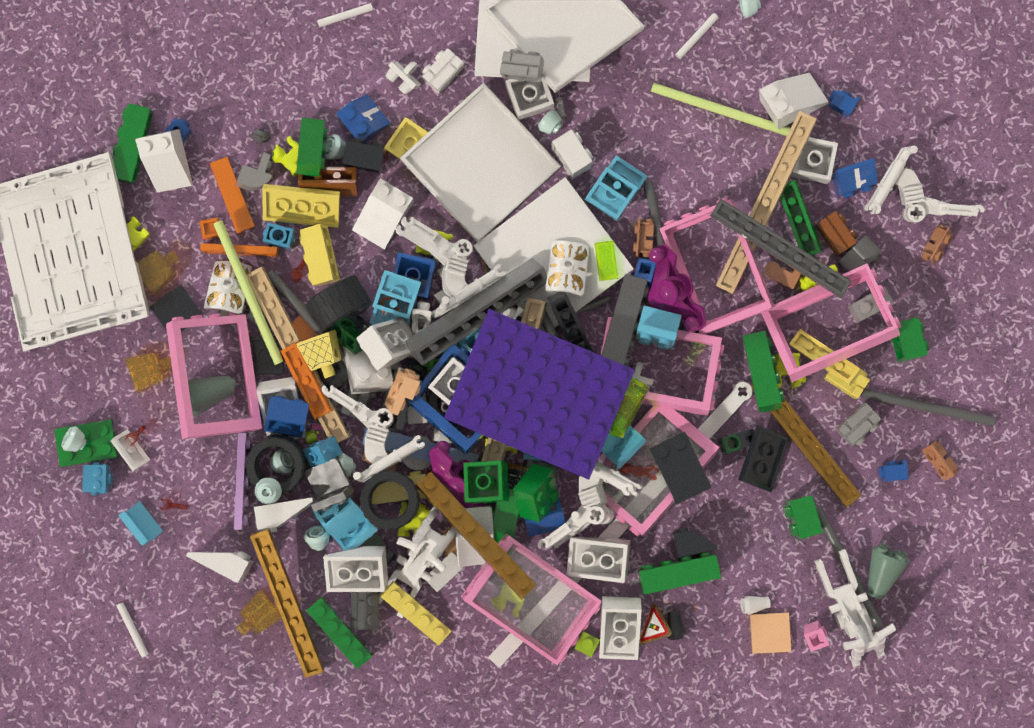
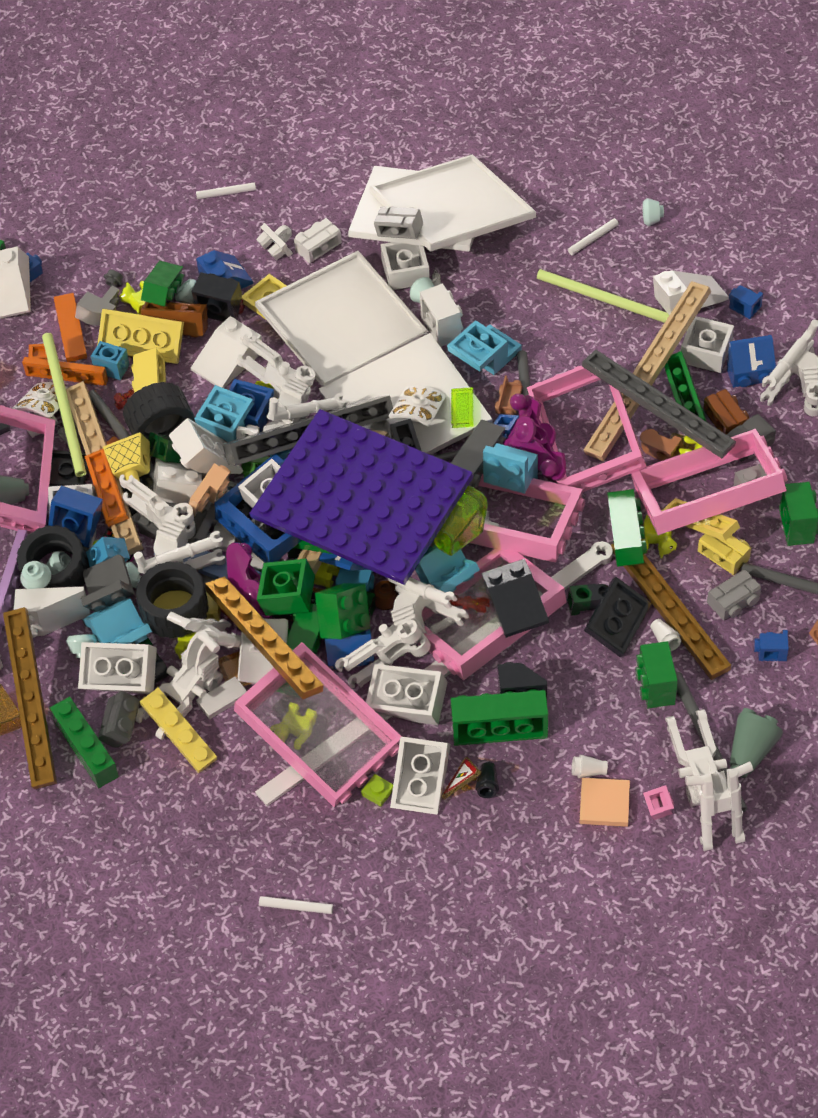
camera: 10 degrees right, 30 degrees down
(804, 470) = (665, 633): none -> white cone

